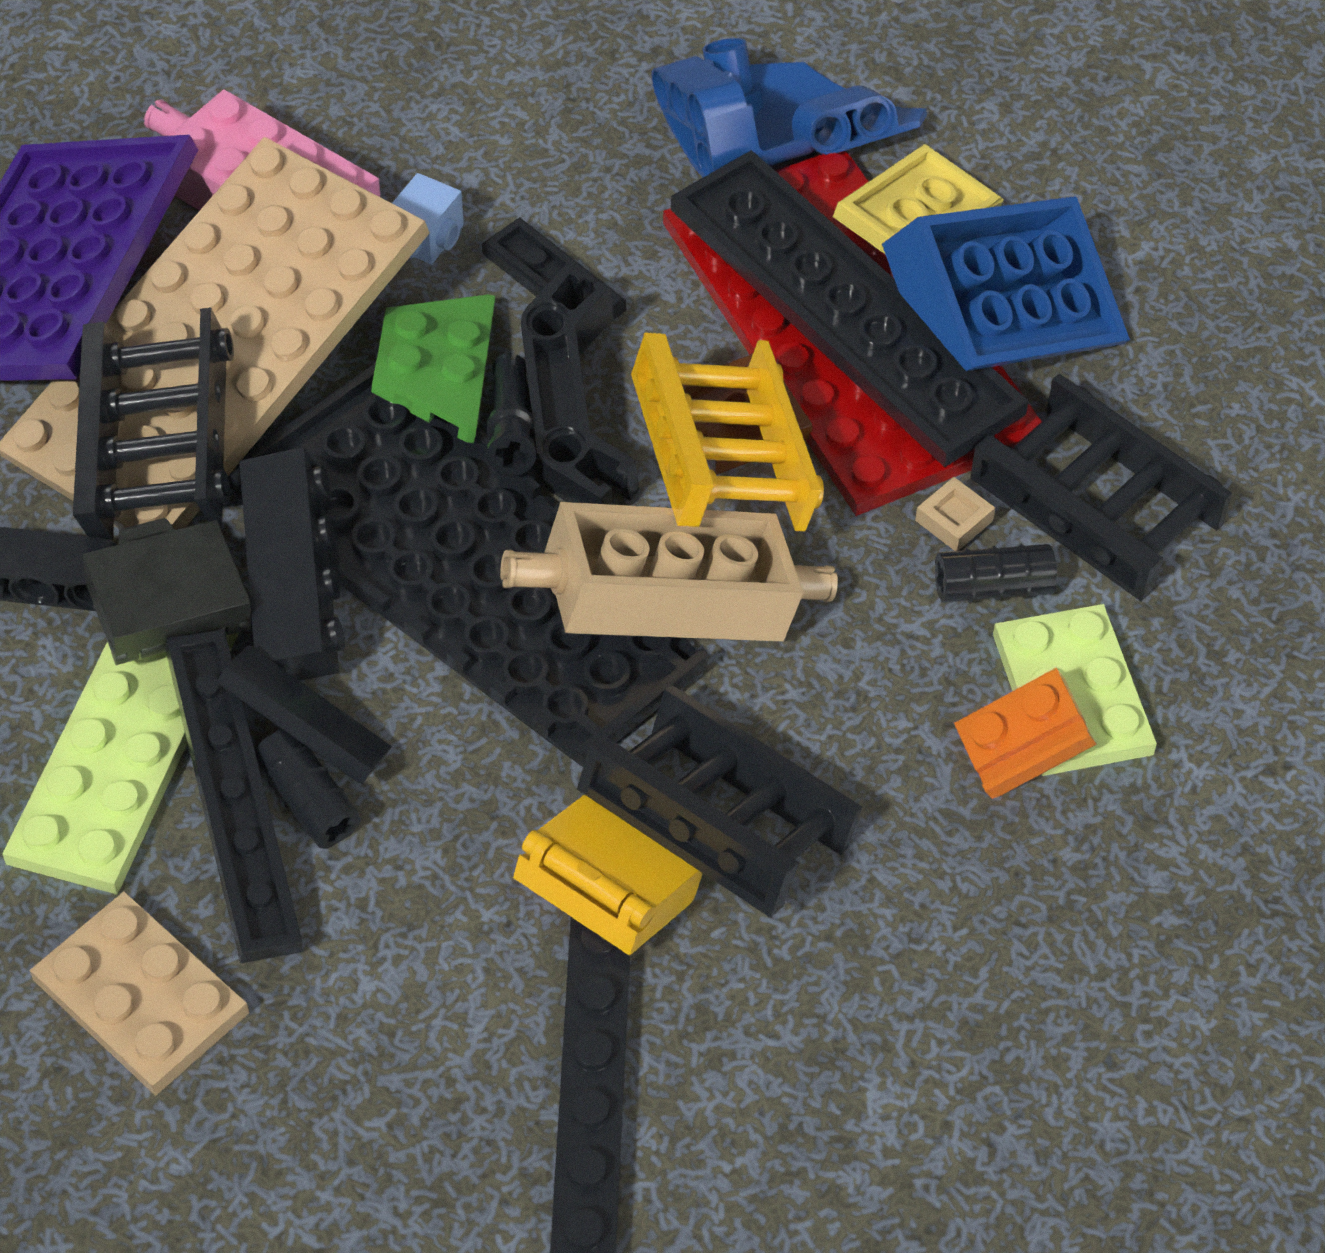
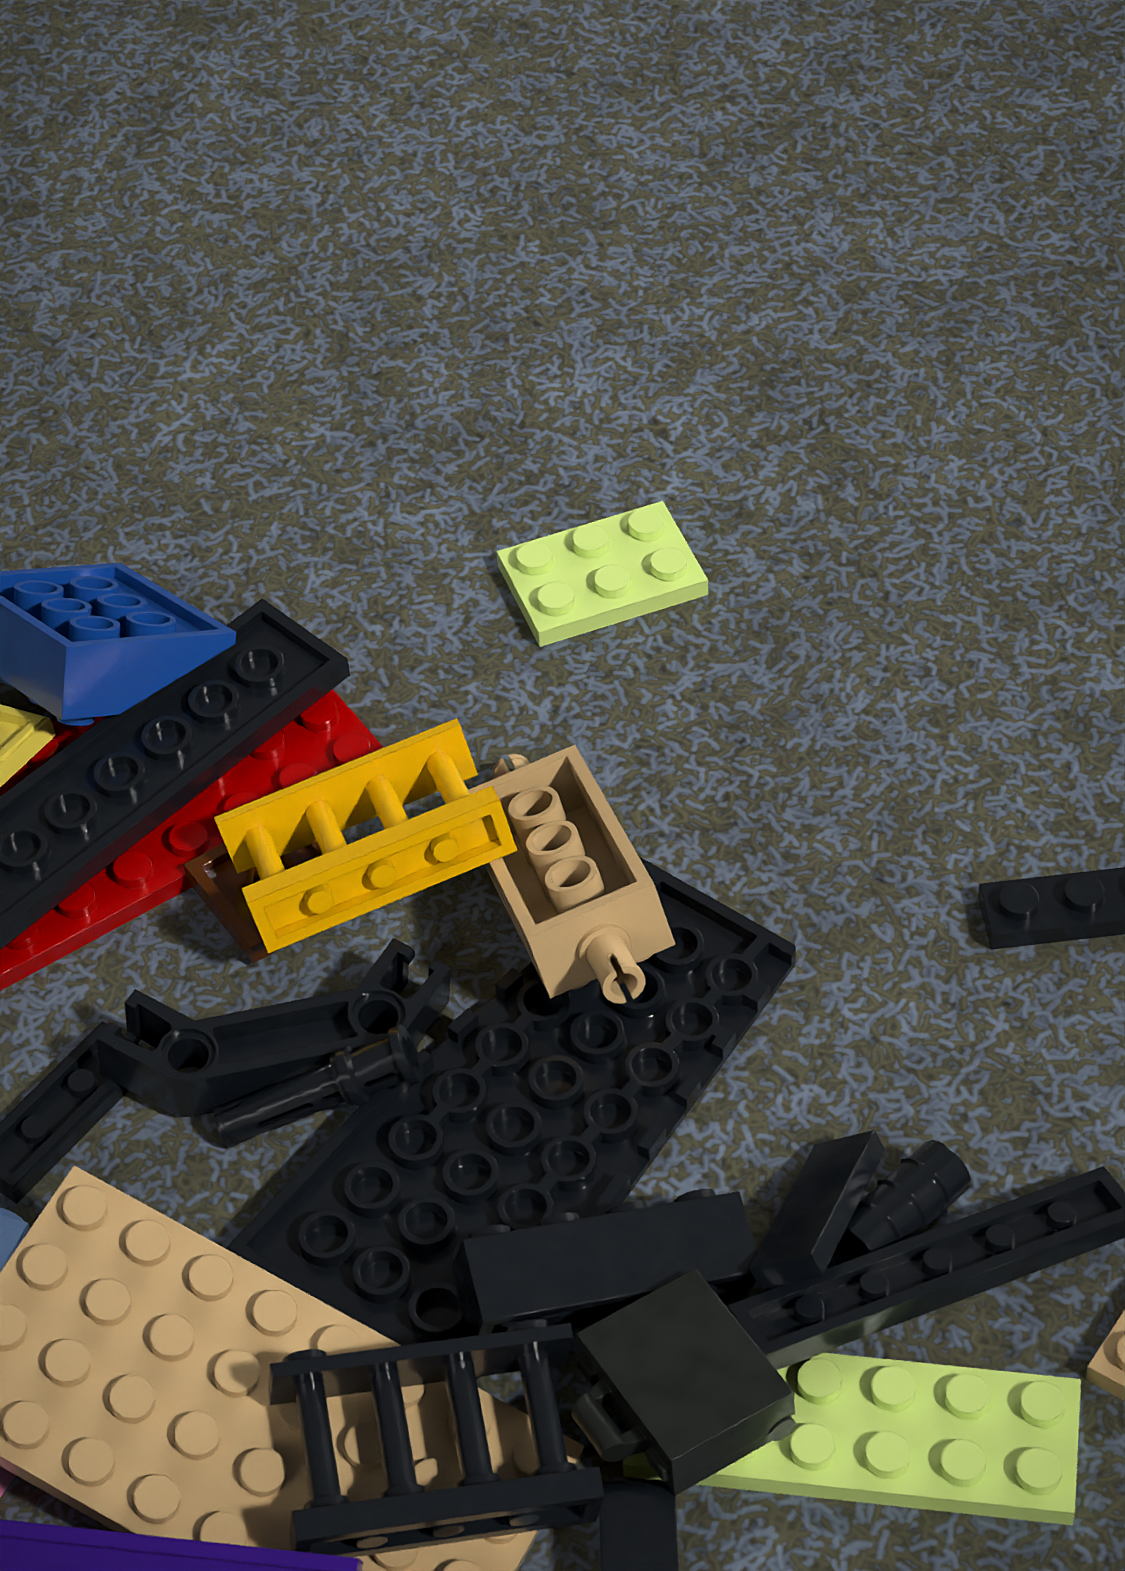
camera: 95 degrees left, 5 degrees down
(436, 359) = (248, 1185): bright green wing -> none
(606, 874) = (940, 894): yellow piece -> none
(700, 832) = (866, 843): black fence -> none
(955, 514) = (396, 677): tan plate -> none
(995, 573) = (475, 635): black axle -> none
(1024, 733) = (682, 588): orange plate -> none
(1092, 530) = (363, 603): black fence -> none

